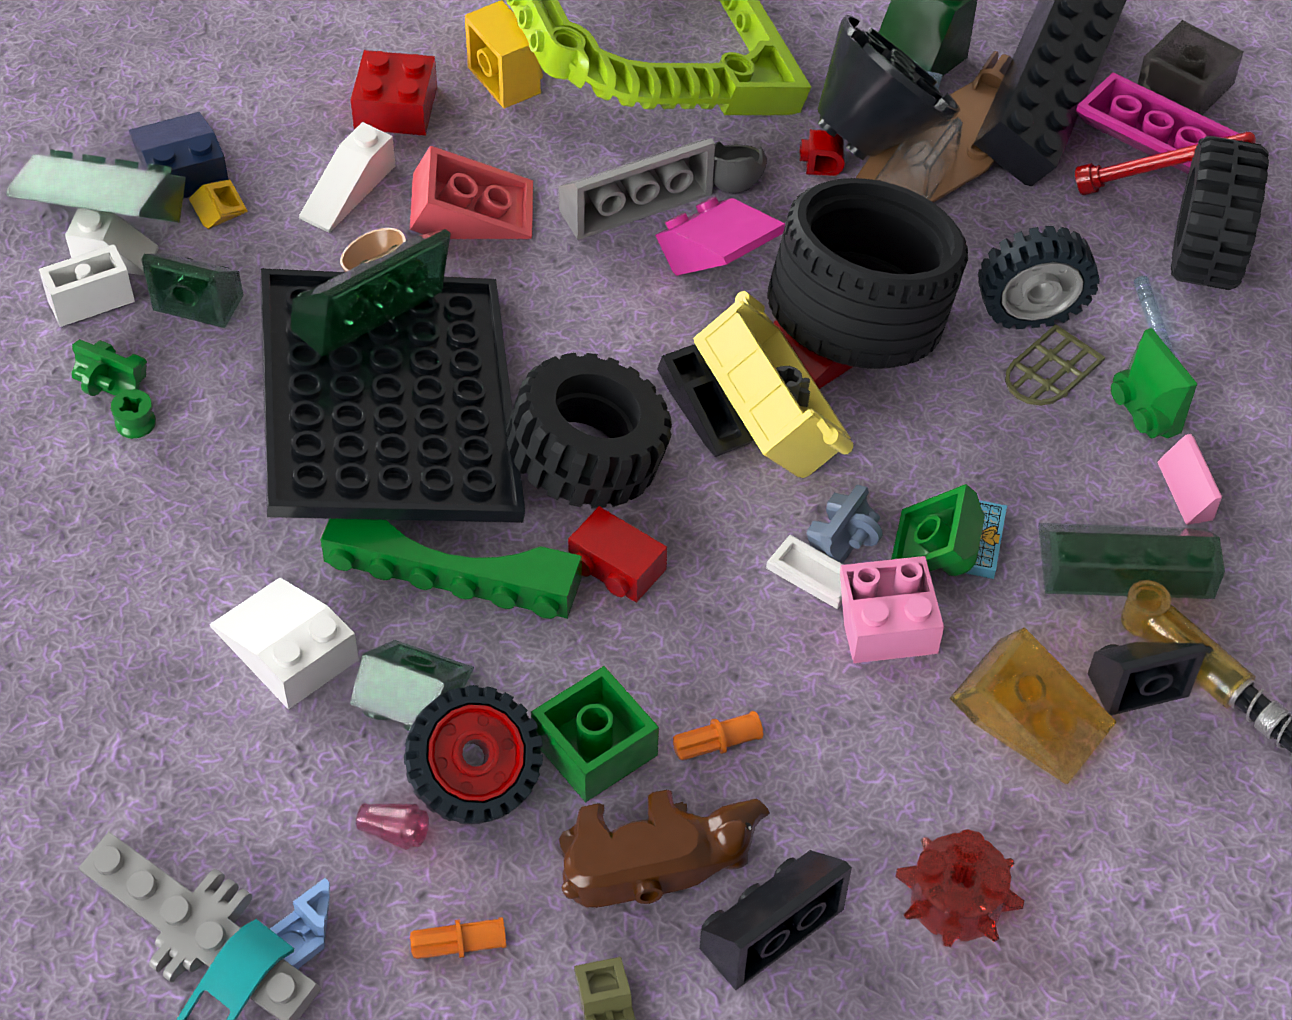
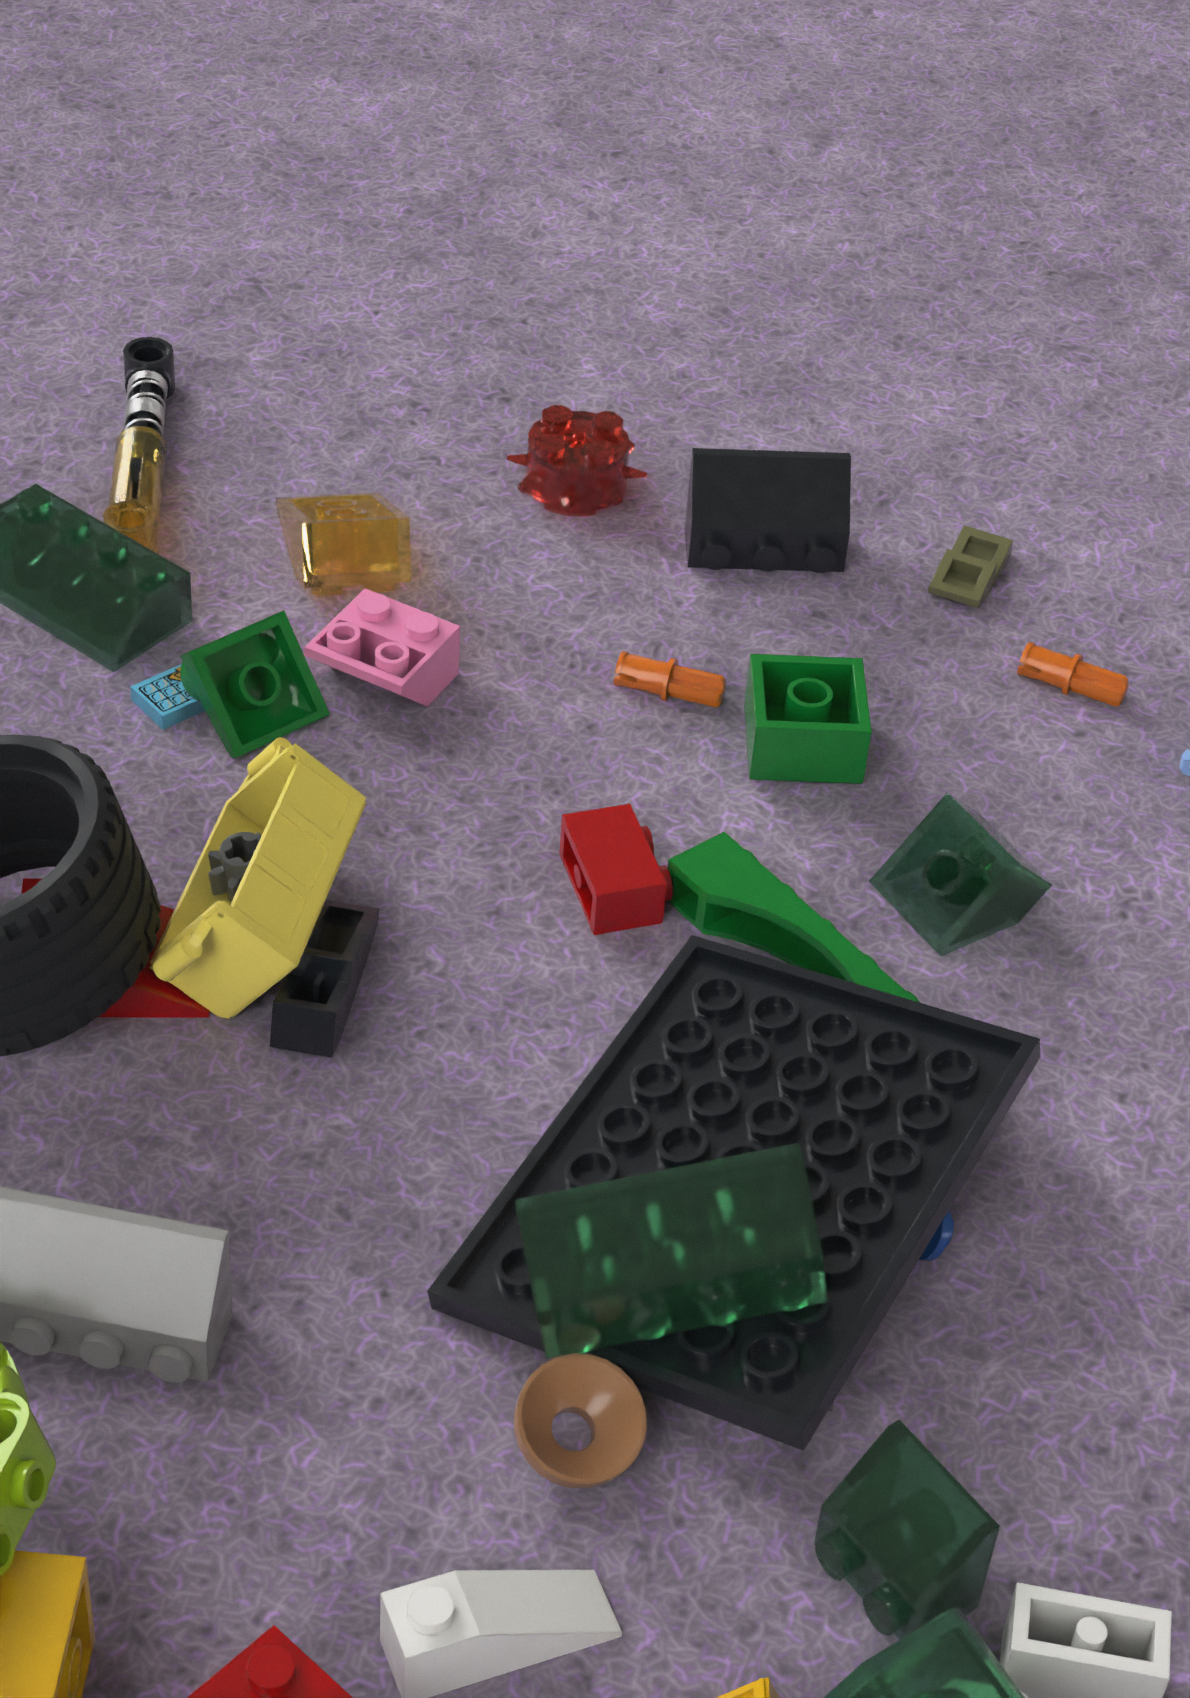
camera: 145 degrees left, 10 degrees down
(104, 370) = (1135, 1531): green hips -> none
(126, 421) = (1098, 1415): green wheel -> none
(288, 640) = (1085, 996): white slope -> none
(395, 823) = (1072, 780): clear pink cone -> none
(444, 777) = (957, 752): wheel -> none
(469, 199) = (346, 1451): coral slope -> none
(573, 462) = (545, 1012): black tyre -> none
(654, 854) = (833, 614): reddish brown animal -> none
(715, 235) = (90, 1086): dark pink slope -> none
(808, 570) = (405, 757): white tile -> none
(850, 525) = (339, 748): sand blue hips -> none
(1144, 673) = (220, 476): black slope -> none

